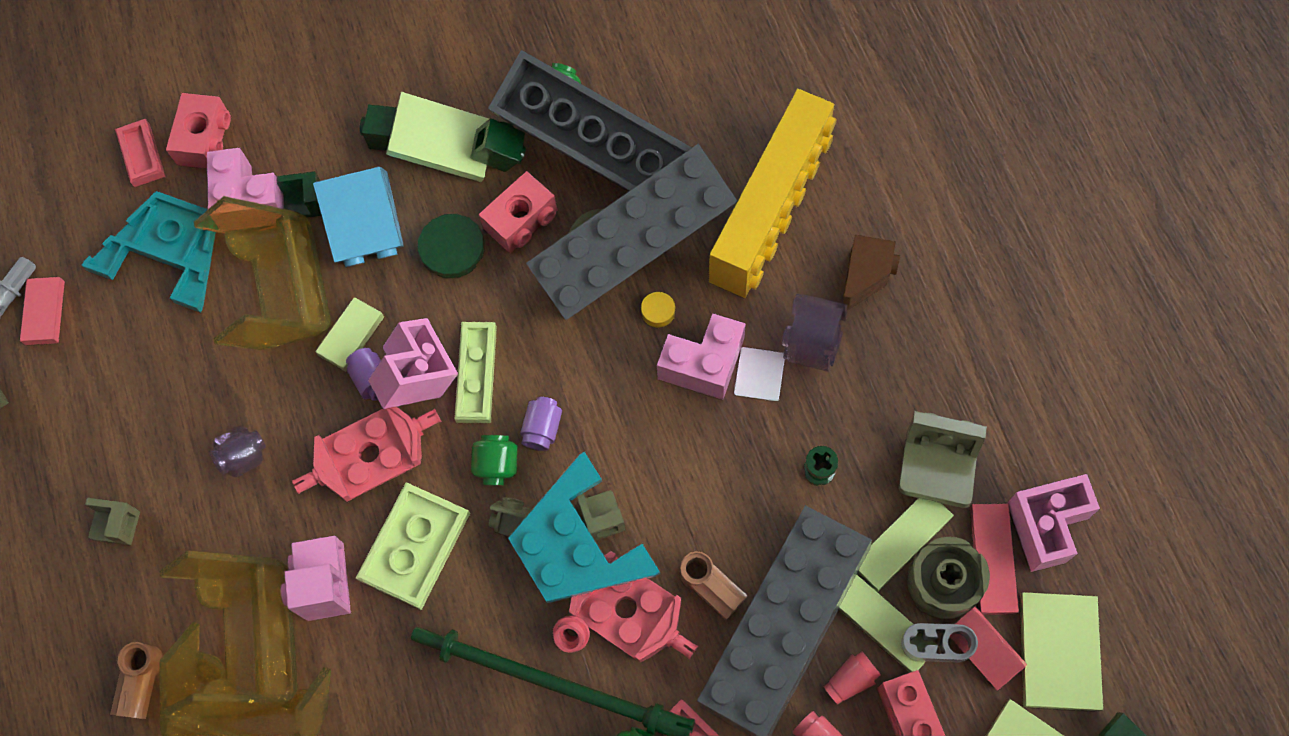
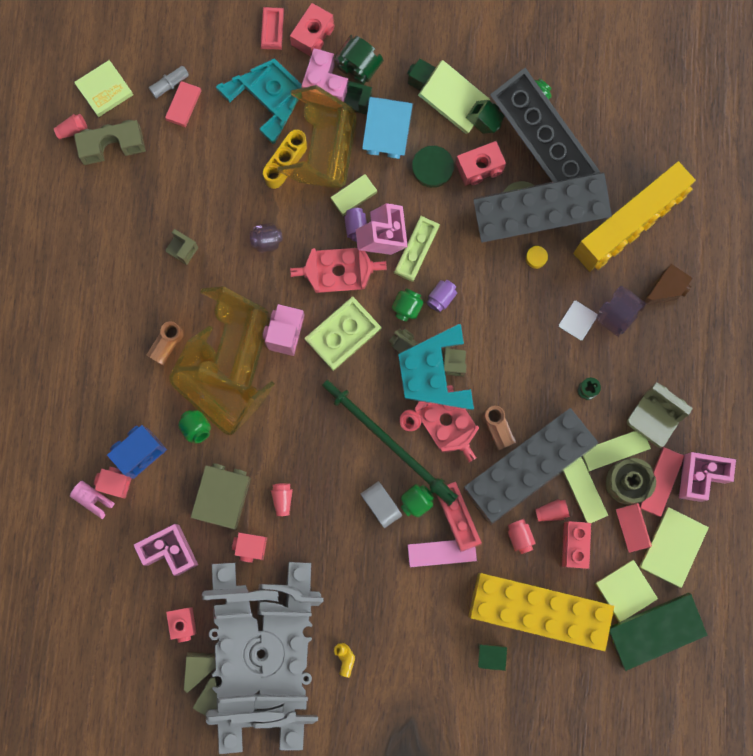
camera: 15 degrees right, 10 degrees up
(219, 311) = (287, 149): none -> yellow beam
(280, 141) = (358, 59): none -> dark green brick
(705, 365) = (550, 303): bright pink brick -> none
(929, 633) = (606, 505): light grey beam -> none

